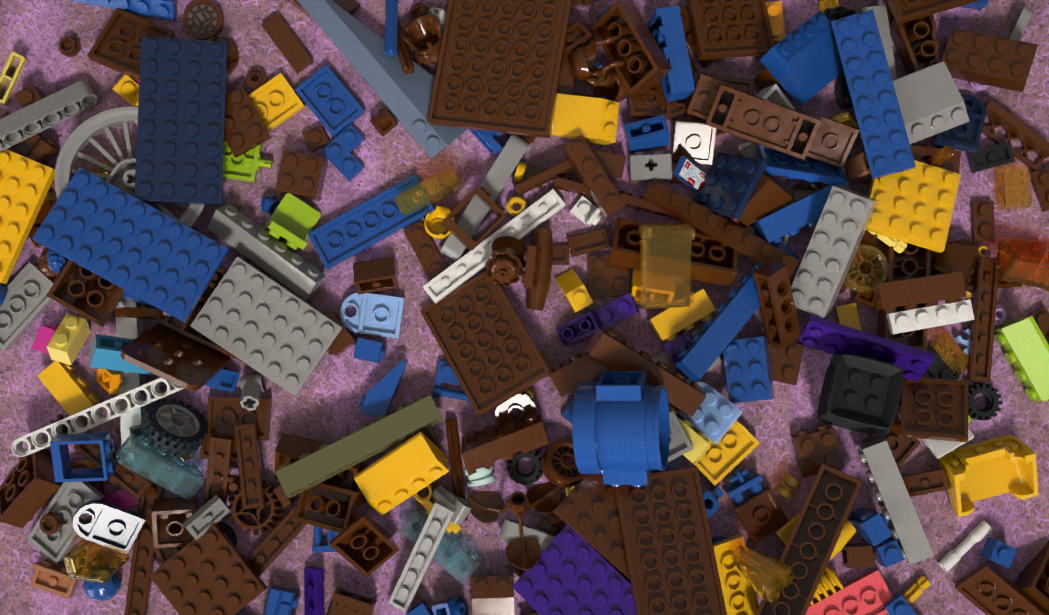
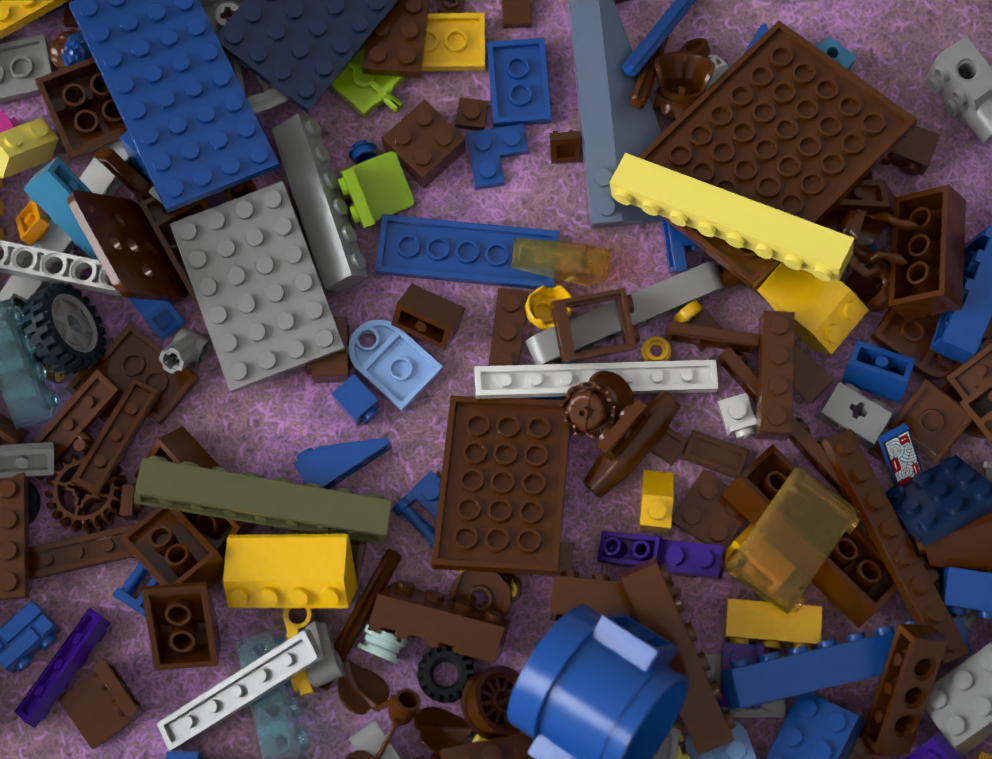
camera: 40 degrees right, 10 degrees down
(510, 104) = (732, 218): none -> light yellow brick

